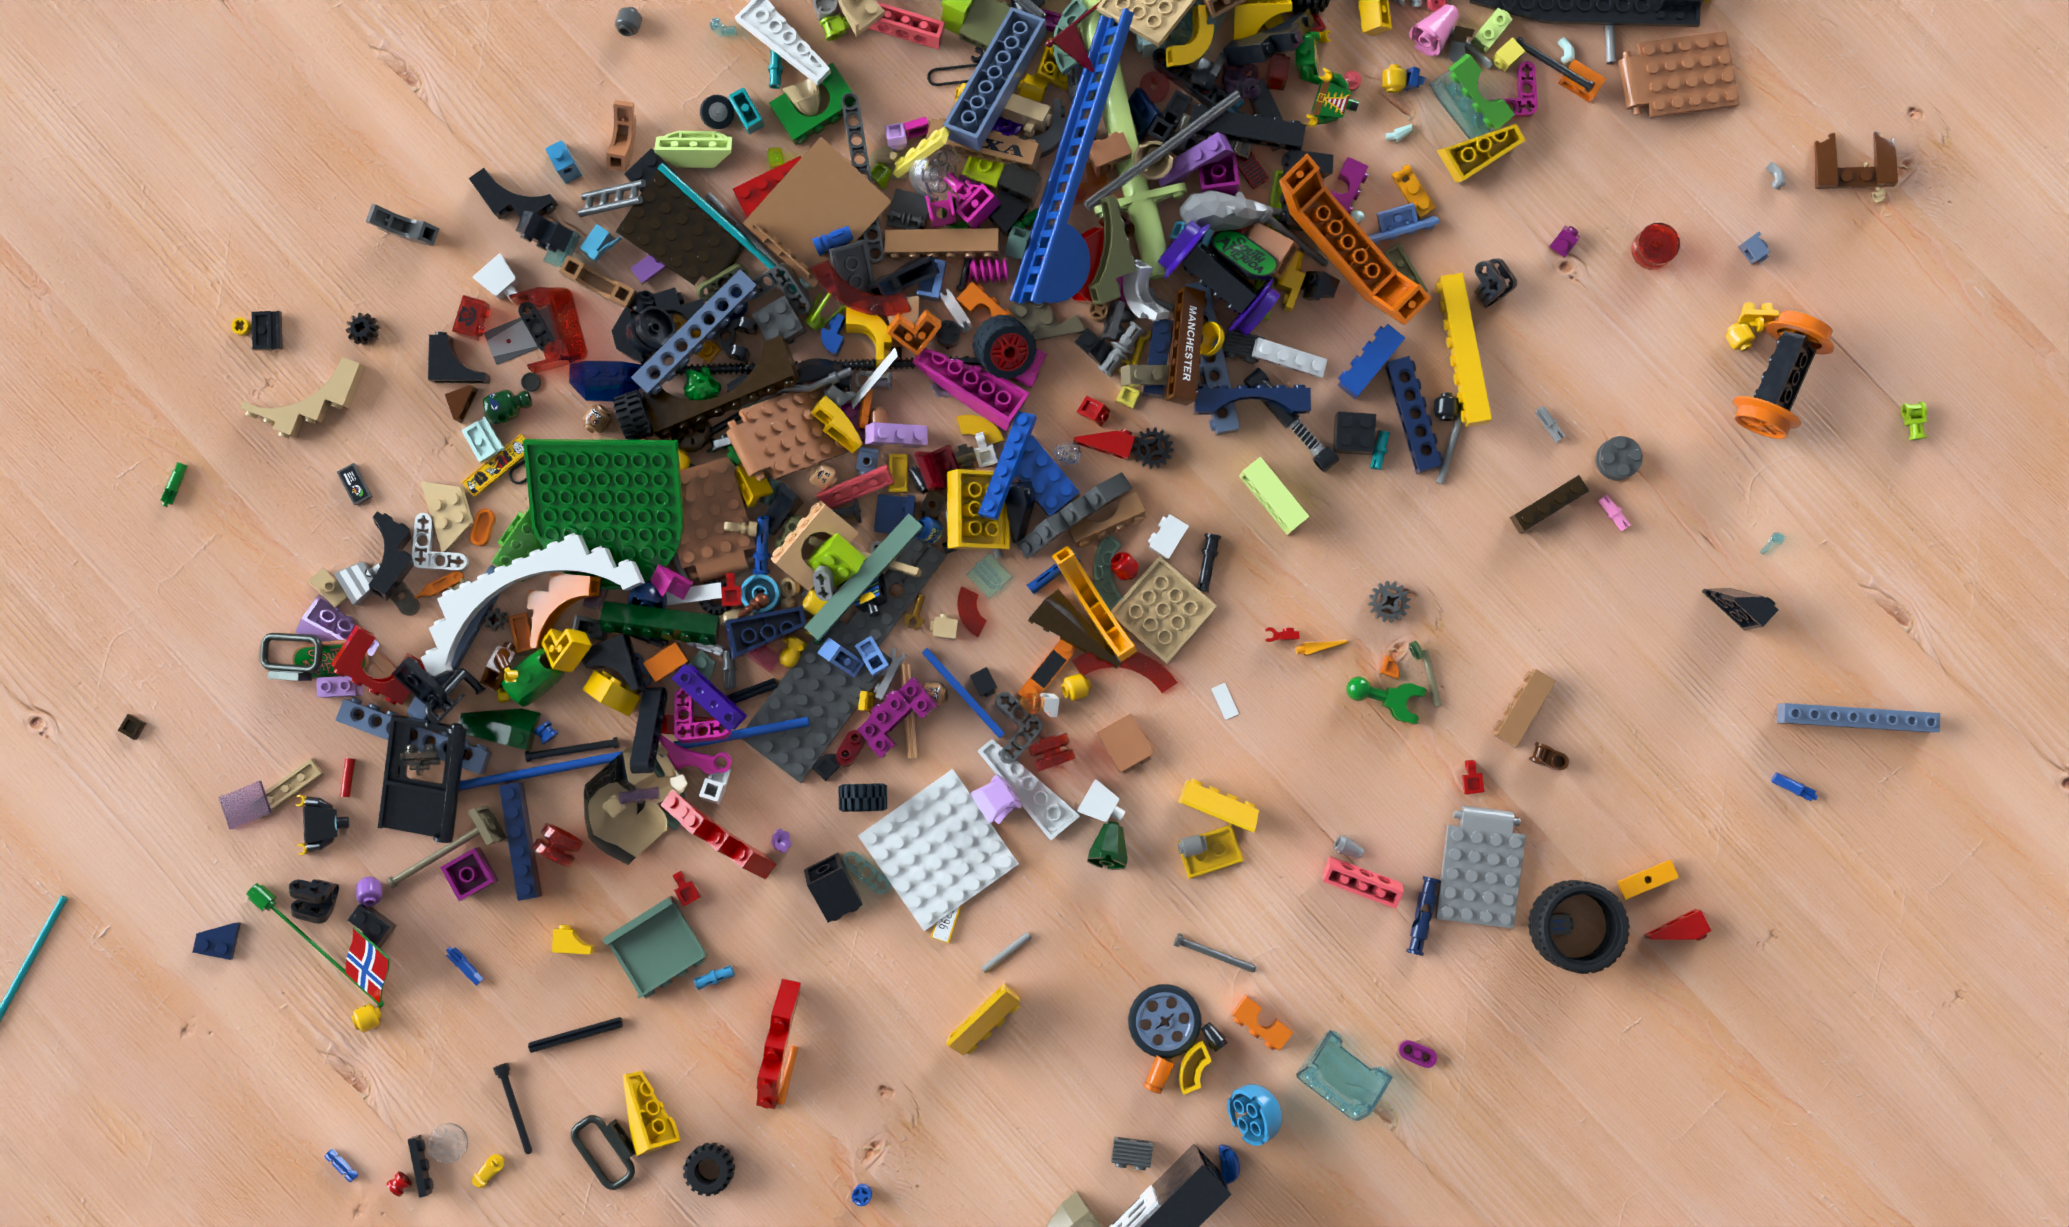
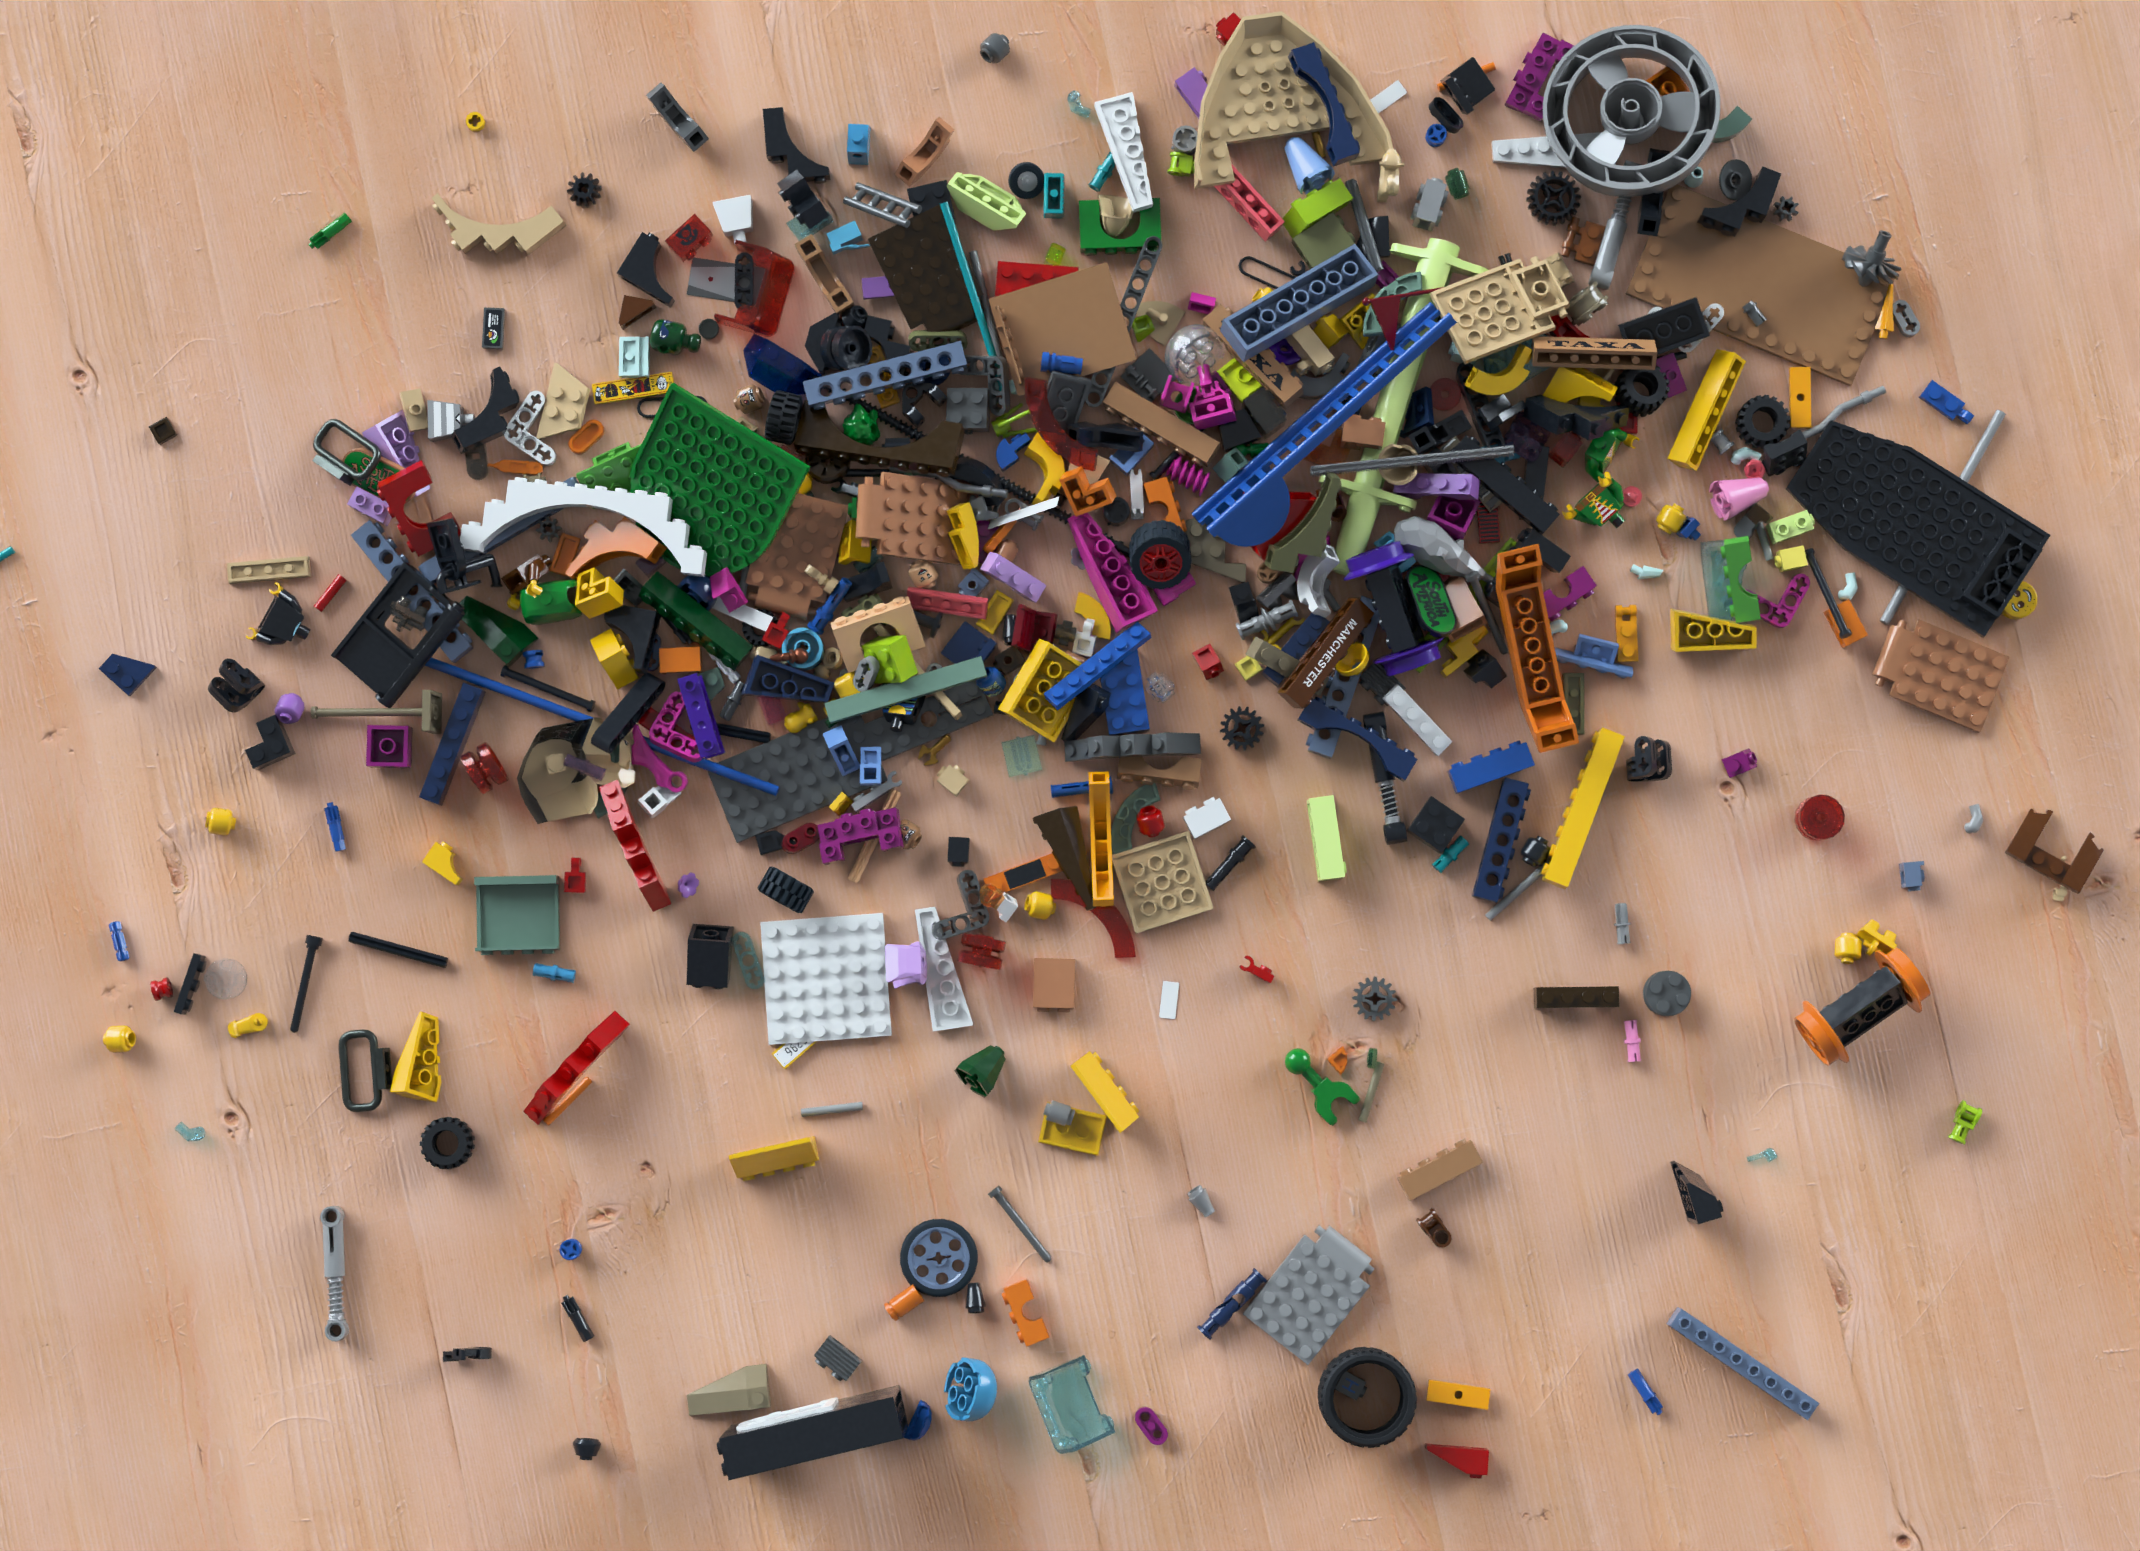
camera: 30 degrees right, 0 degrees up
(245, 805) = (224, 563): clear purple piece -> none
(266, 330) = (496, 139): black plate -> none
(365, 962) = (250, 770): flag -> none
(896, 137) = (1177, 300): lavender tile -> none
(924, 149) = (1194, 330): light yellow plate -> none
(963, 693) = (933, 849): blue tile -> none
(968, 611) = (983, 778): clear red tile -> none
(1100, 803) = (998, 1025): white torso -> none
(1111, 443) = (1208, 702): red slope -> none
(1192, 1066) = (937, 1313): yellow brick -> none
(1312, 647) = (1277, 998): light orange piece -> none
(1362, 882) = (1194, 1239): coral brick -> none
(1472, 781) = (1351, 1208): red plate -> none

